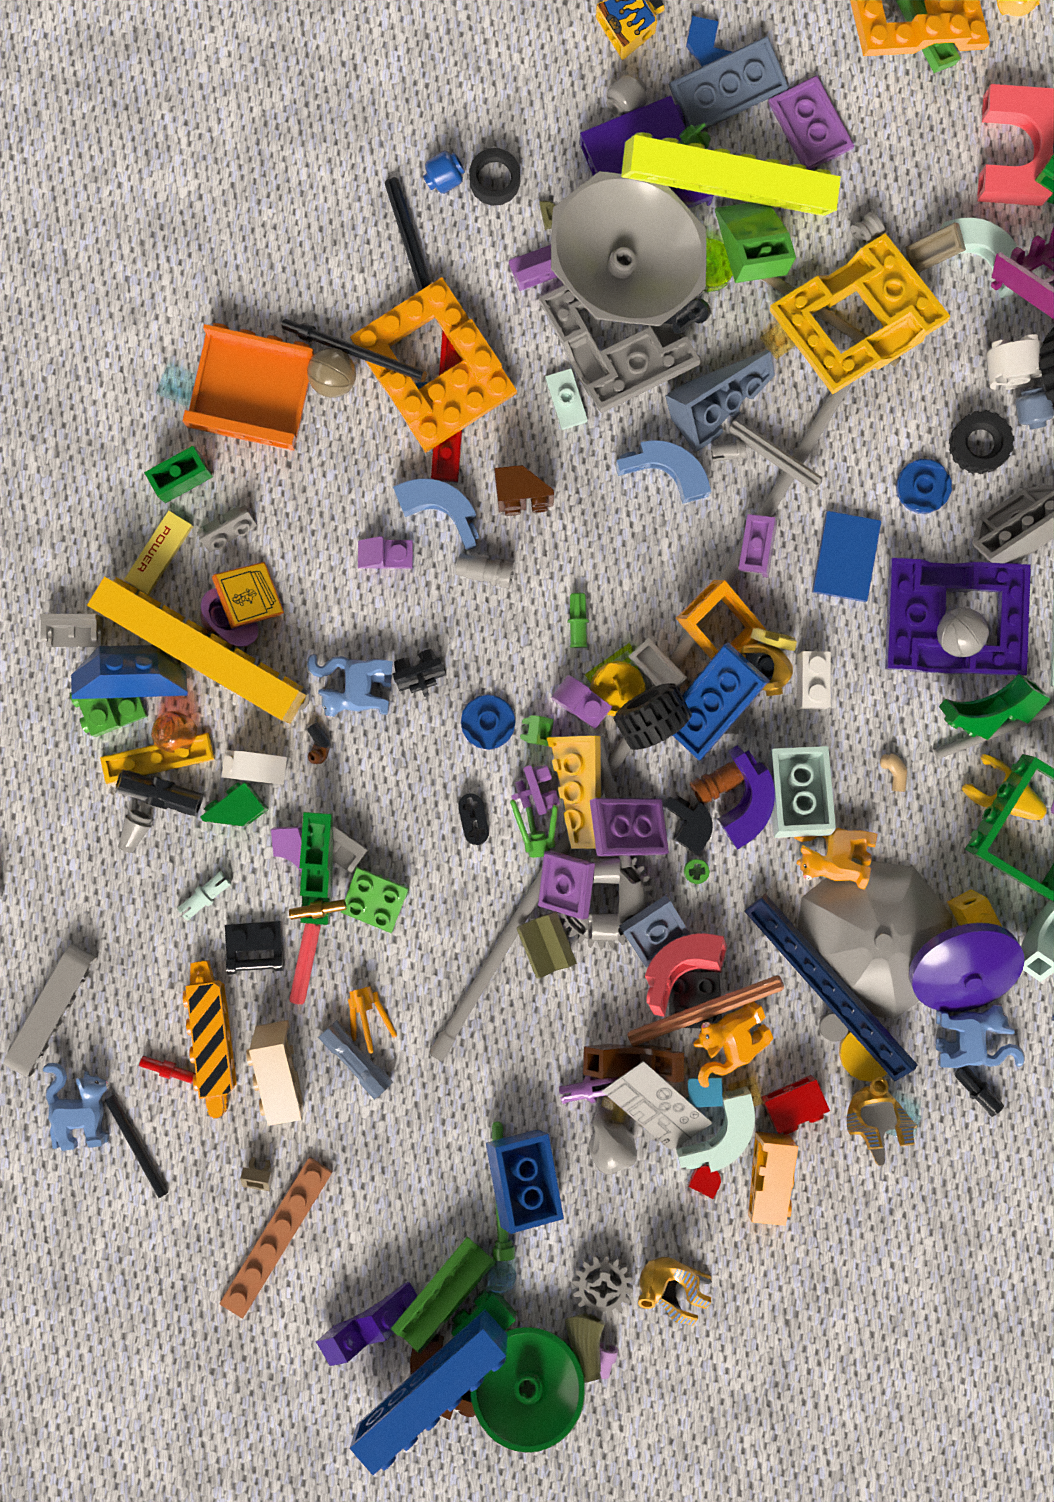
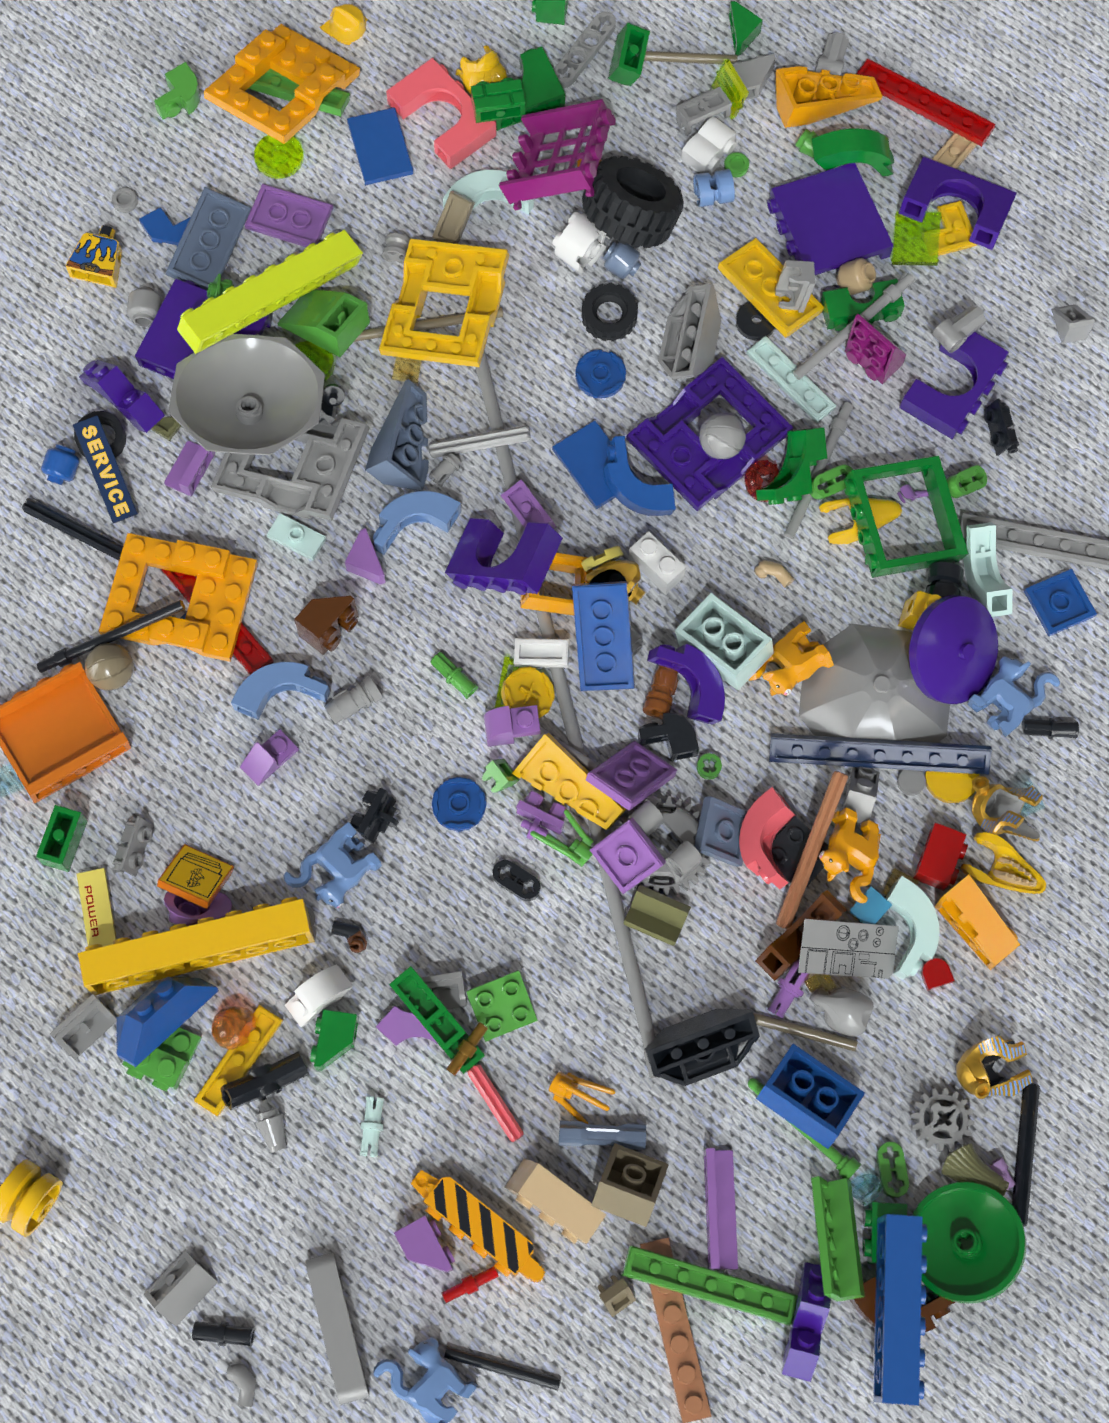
camera: 45 degrees left, 15 degrees down
(157, 1011) = (422, 1246): none -> medium lavender slope
(254, 937) = (439, 1122): black plate -> none
(326, 1234) = (710, 1285): none -> bright green tile
(336, 1117) = (630, 1185): none -> dark tan brick
(386, 1190) = (720, 1209): none -> medium lavender fence
(472, 207) = (105, 469): none -> dark blue tile
(486, 1067) = (702, 1045): none -> black wedge
(528, 1278) = (899, 1169): none -> bright green beam
(541, 156) = (119, 391): none -> dark purple arch
(567, 1123) = (805, 1032): none -> dark tan bar
(597, 466) = (363, 559): none -> medium lavender slope
(637, 1364) = (1025, 1151): none -> black axle
(652, 716) = (571, 682): black tyre -> none
(697, 595) = (519, 573): none -> dark purple arch
(788, 1003) = (862, 792): none -> light grey slope
(835, 1160) = (1008, 869): none -> yellow animal
(845, 65) = (276, 162): none -> clear neon green tile
(850, 603) = (631, 492): none -> blue arch
(940, 128) = (380, 146): none -> blue tile
(953, 687) = (753, 476): none -> clear red gear
(1013, 739) = (829, 477): none -> bright green beam
(1015, 906) = (944, 579): none -> black wheel

